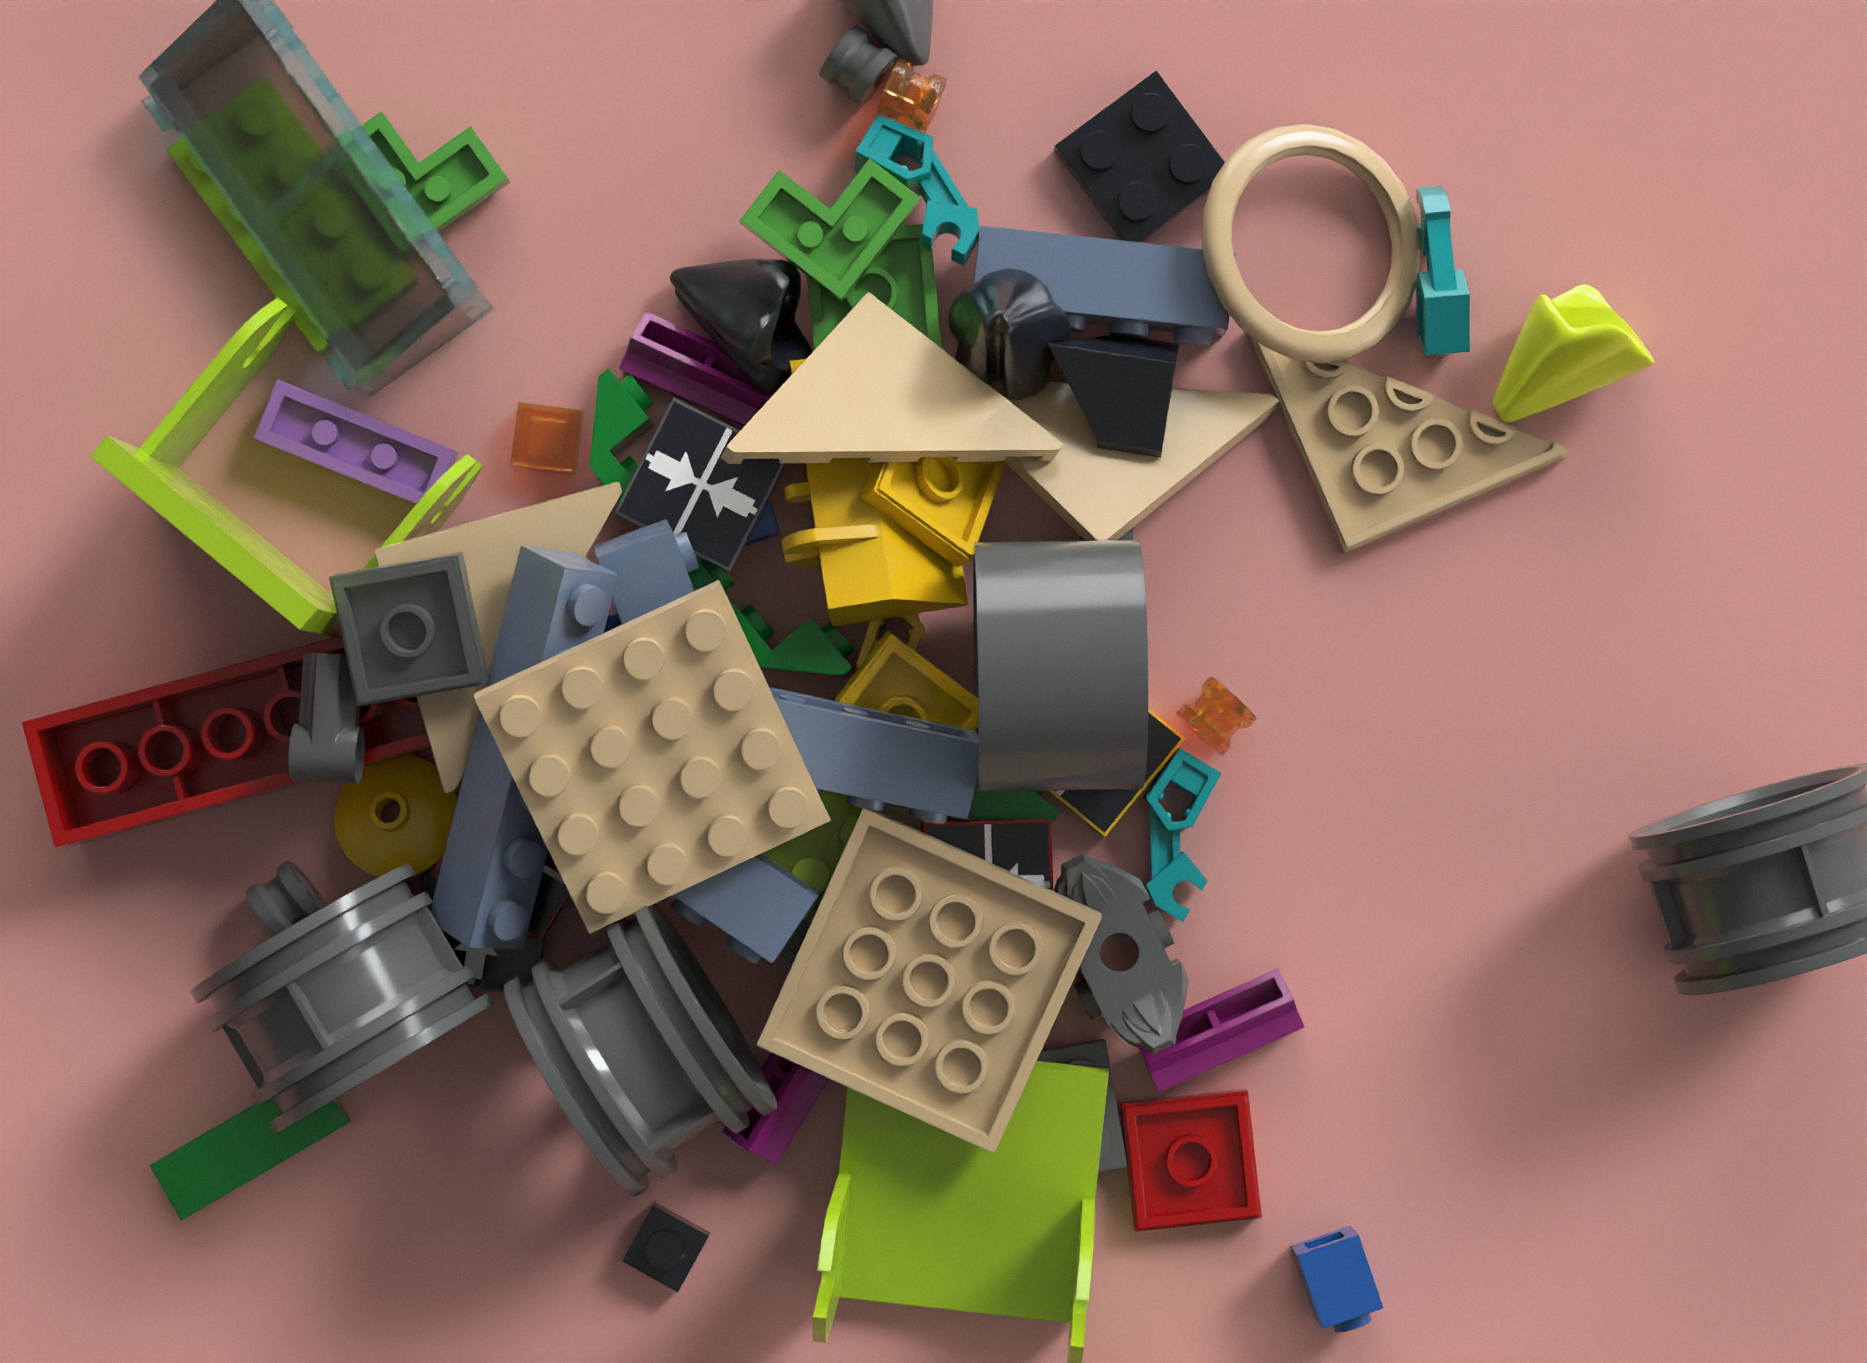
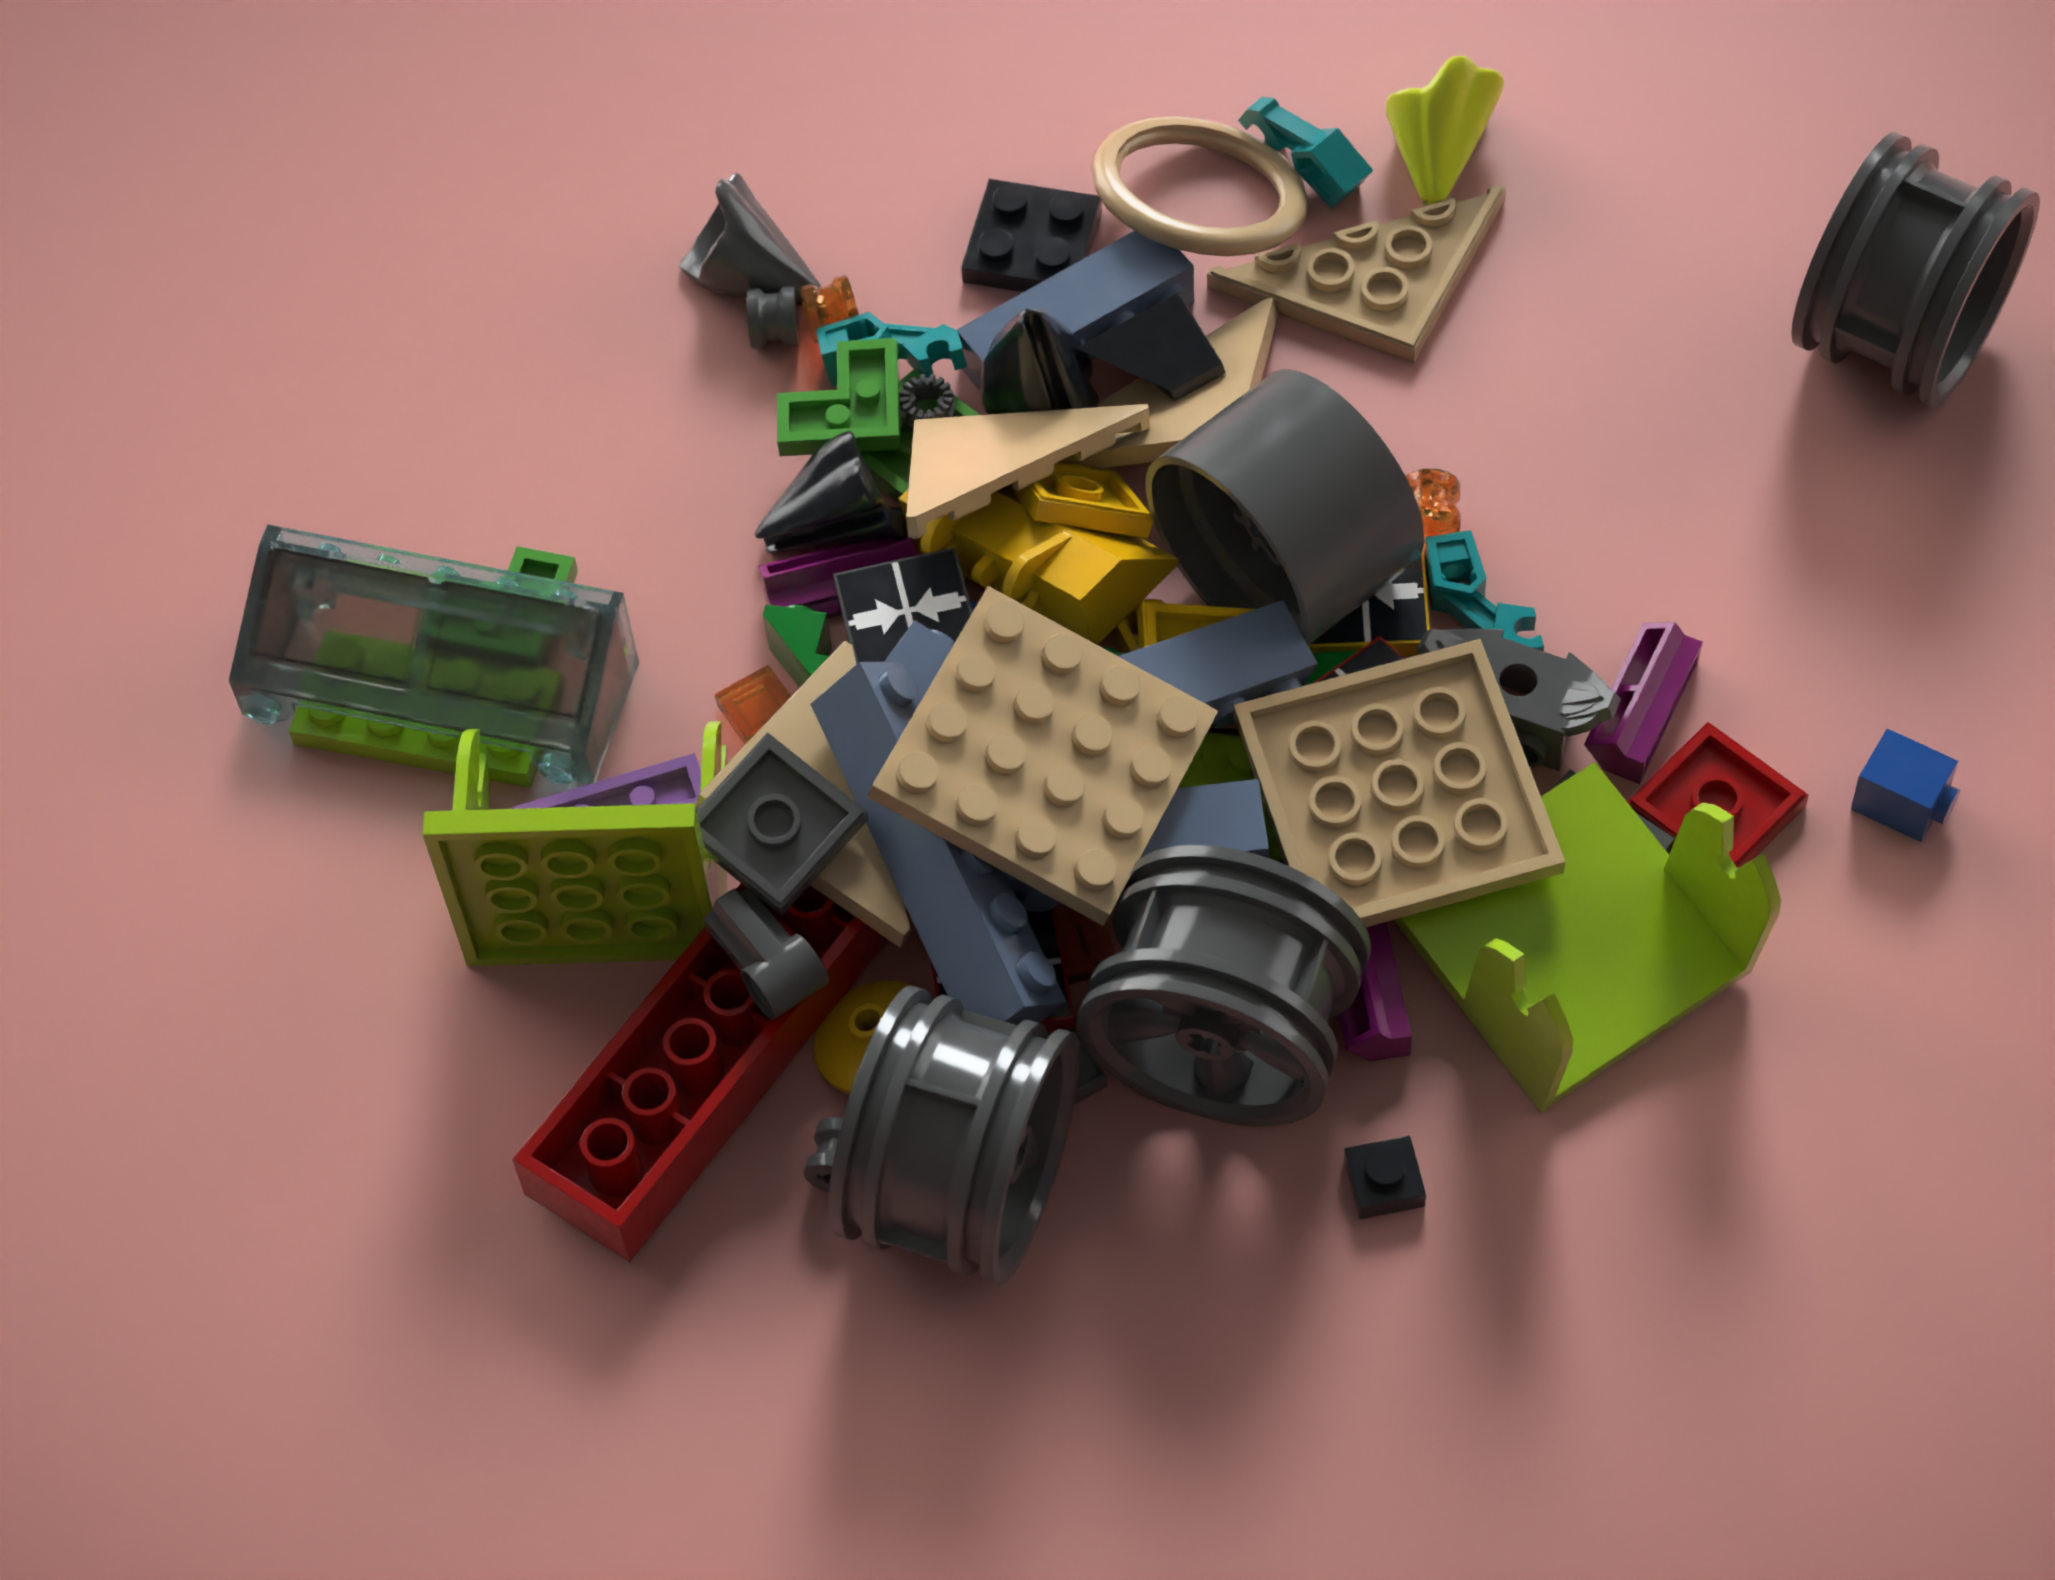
camera: 30 degrees left, 30 degrees down
(238, 1153) = (974, 1372): green tile -> none
(884, 264) = (924, 389): none -> dark grey bush

